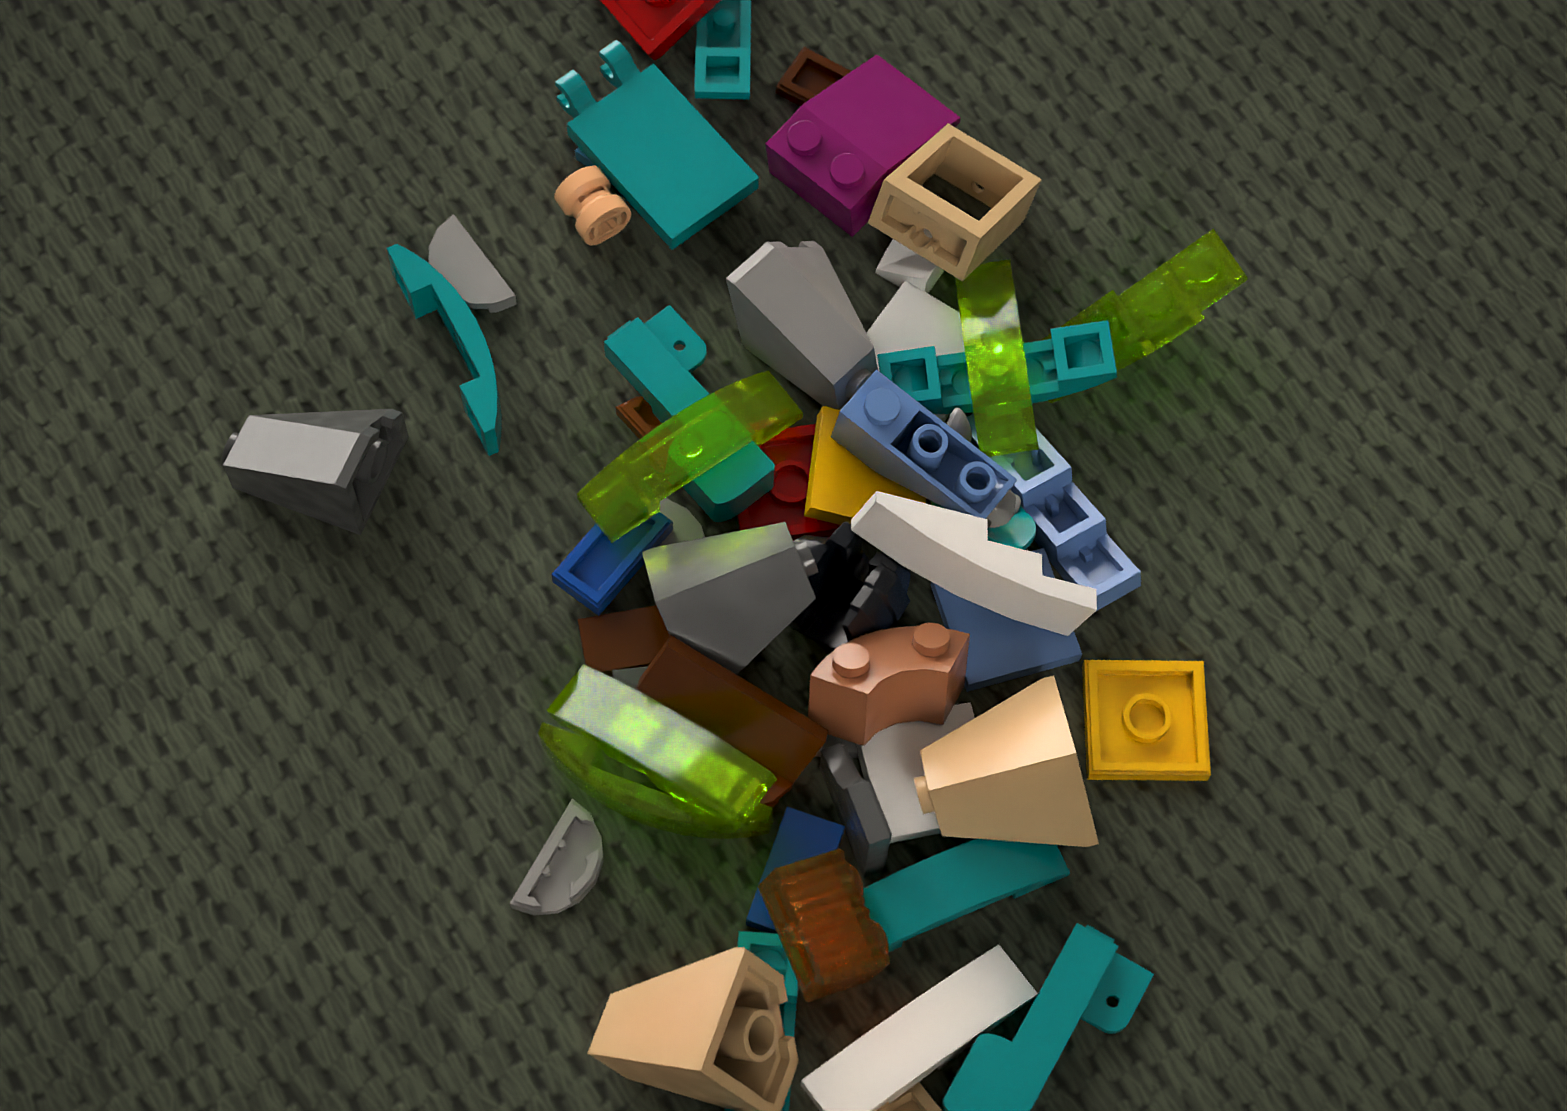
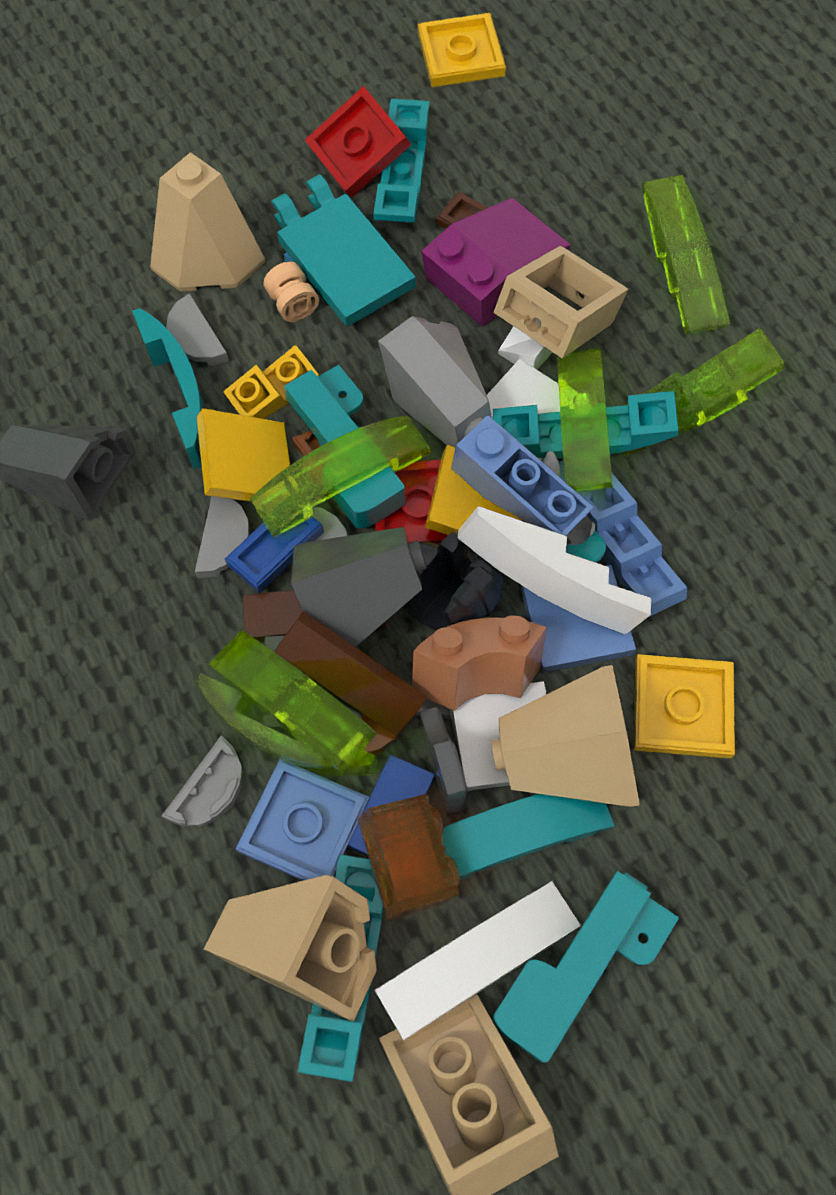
camera: 10 degrees right, 0 degrees up
(465, 131) = (201, 230): none -> tan slope
(542, 542) = (223, 532): none -> light grey tile
(555, 434) = (239, 453): none -> yellow tile
(575, 343) = (263, 392): none -> yellow slope
(685, 897) = (302, 823): none -> medium blue tile
(1113, 122) = (686, 254): none -> clear neon green slope

